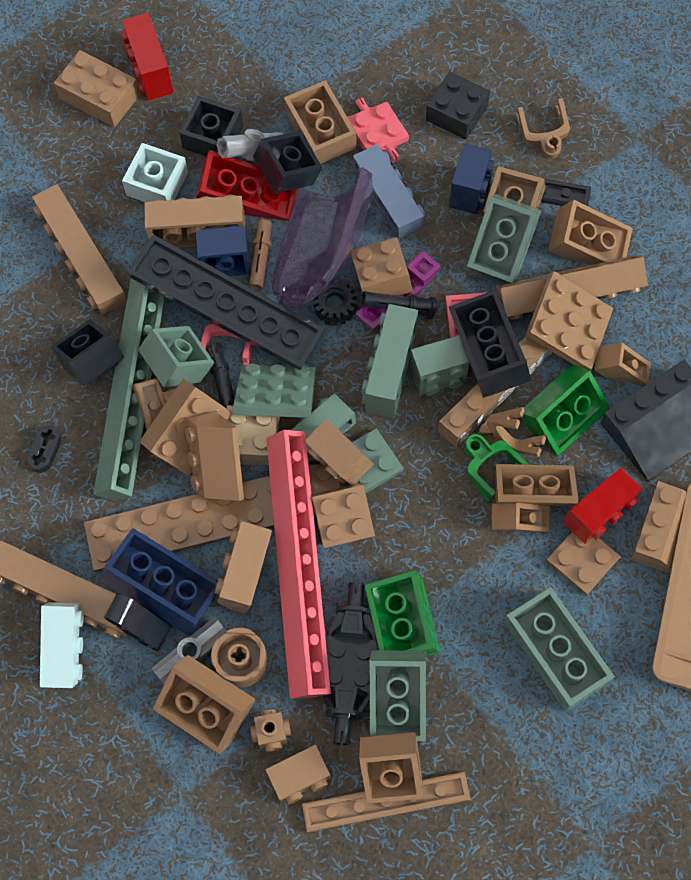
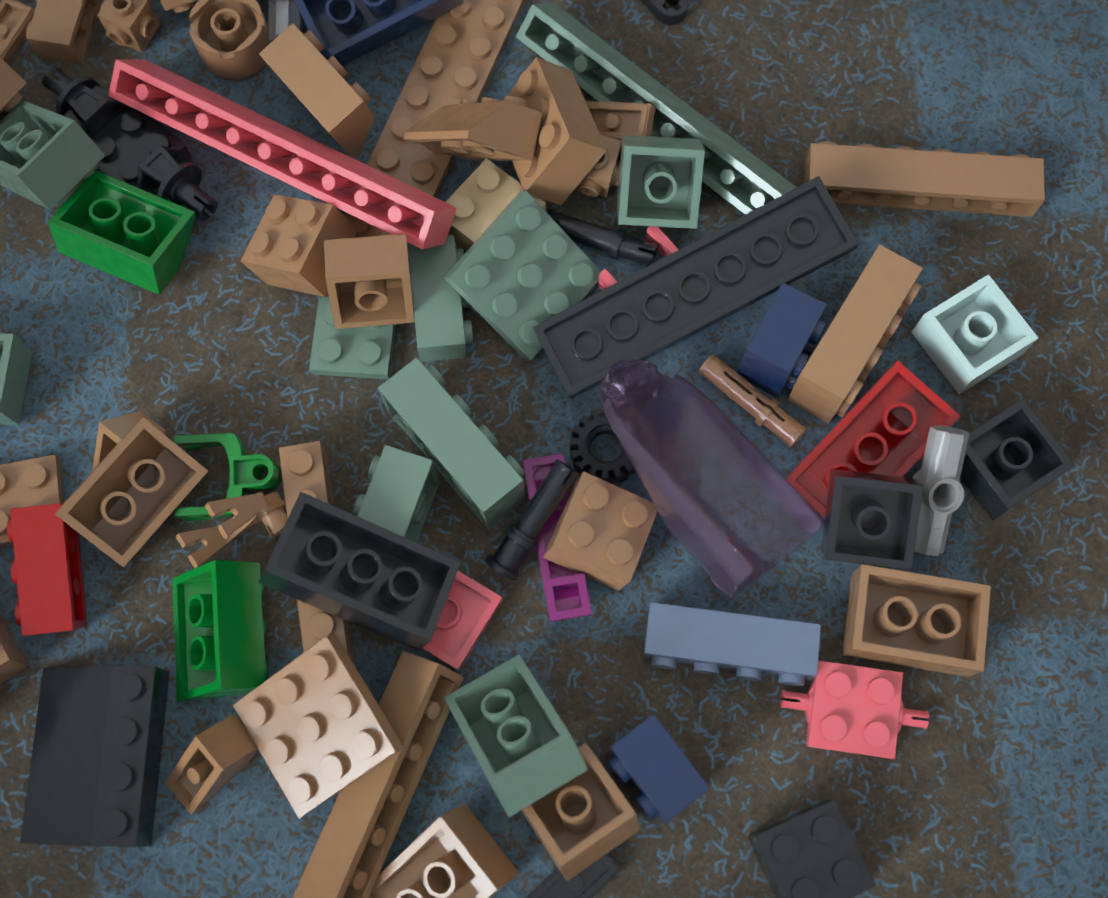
camera: 125 degrees right, 5 degrees up
(87, 352) = (748, 91): black brick -> none

